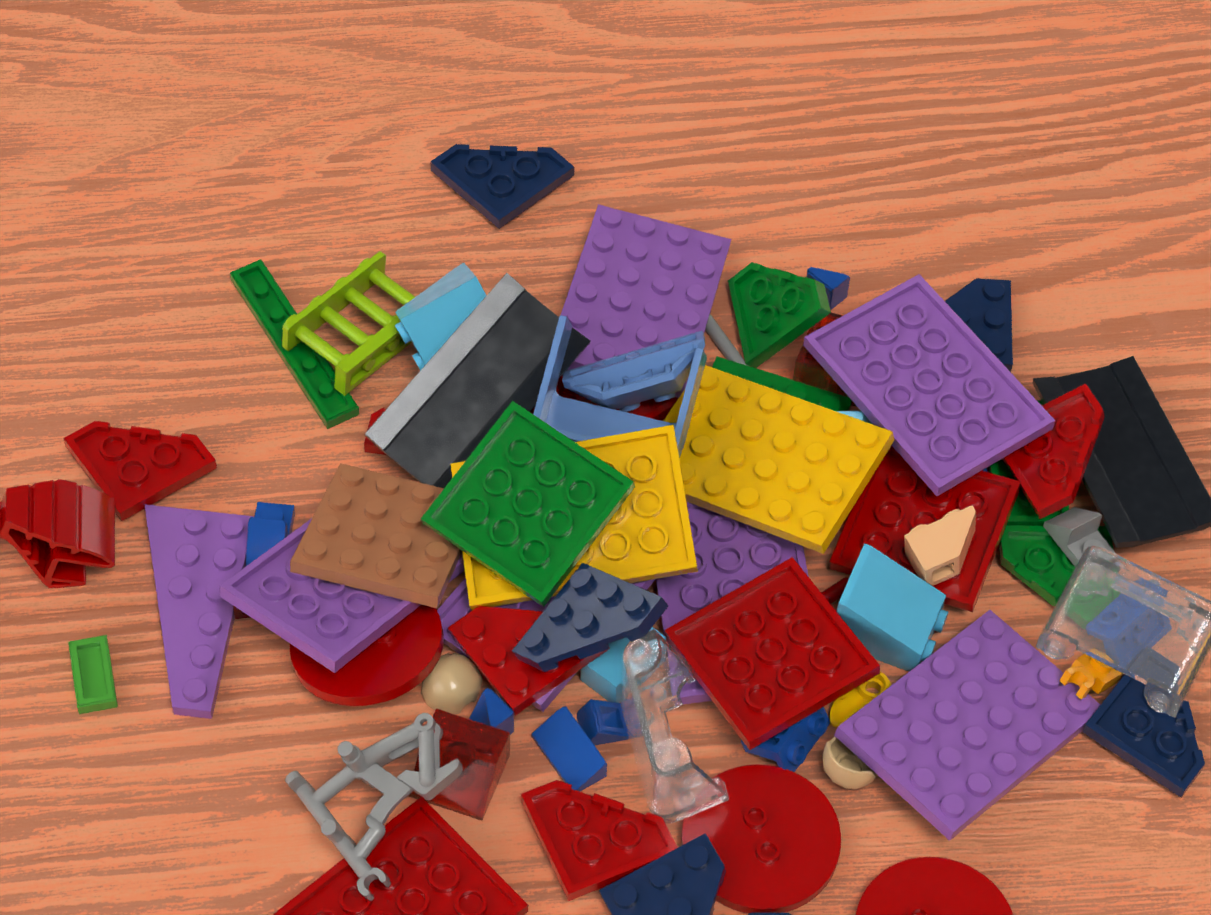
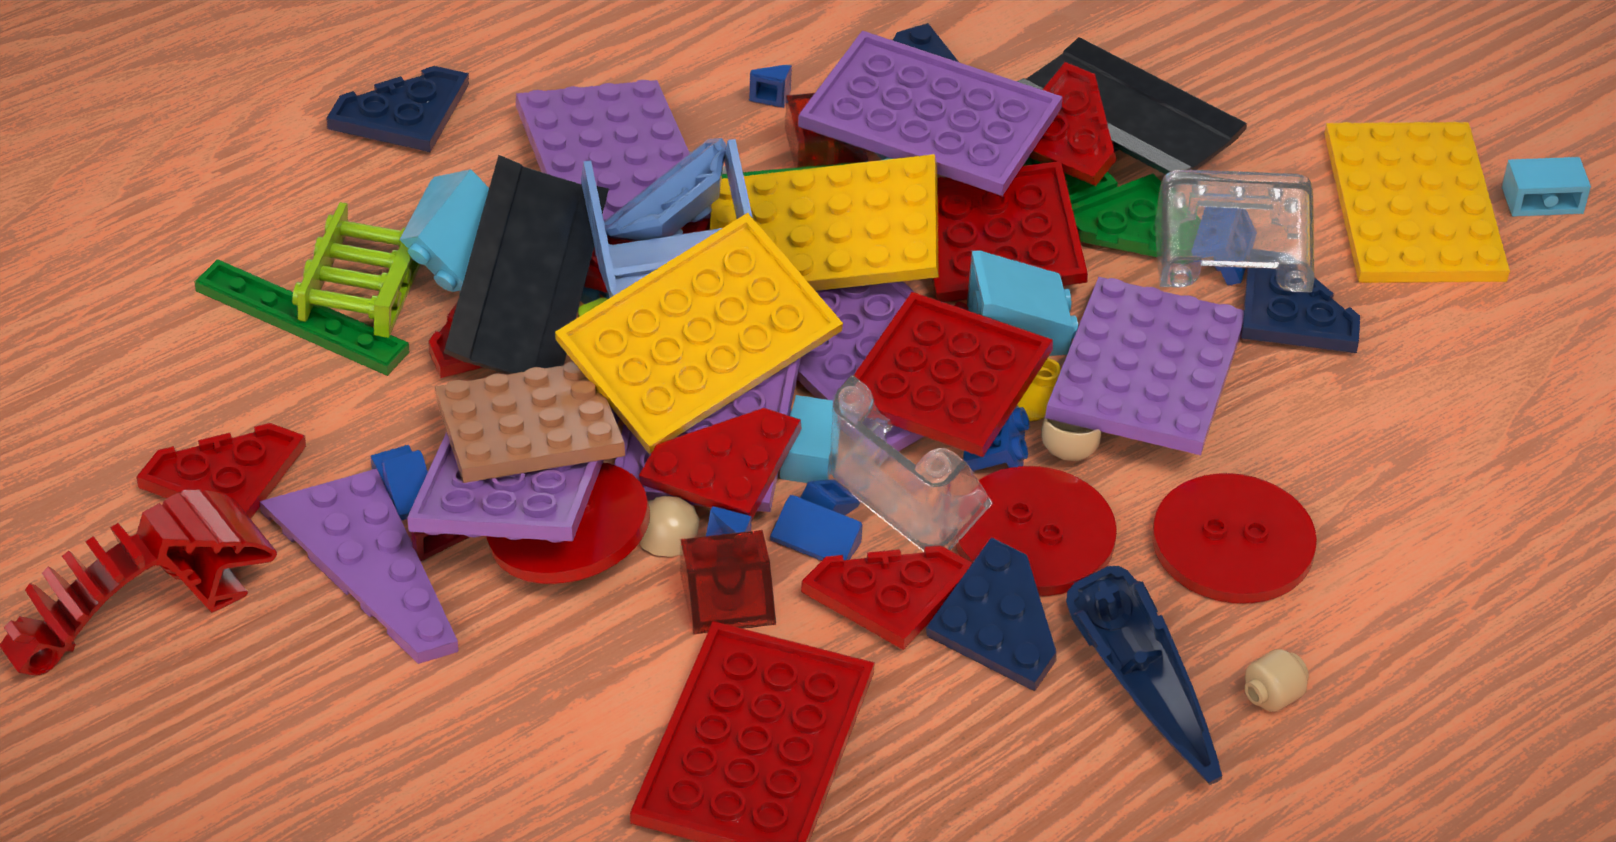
camera: 30 degrees left, 10 degrees down
(92, 674) = (314, 662): bright green tile -> none
(367, 767) = (651, 608): light grey piece -> none
(528, 503) = (655, 330): green plate -> none
(587, 617) = (779, 396): dark blue plate -> none
(774, 309) = (746, 108): green plate -> none
(941, 547) = (1032, 232): light nougat slope -> none
(1076, 531) = (1133, 186): light grey slope -> none
(1089, 675) = (1220, 286): light orange plate -> none

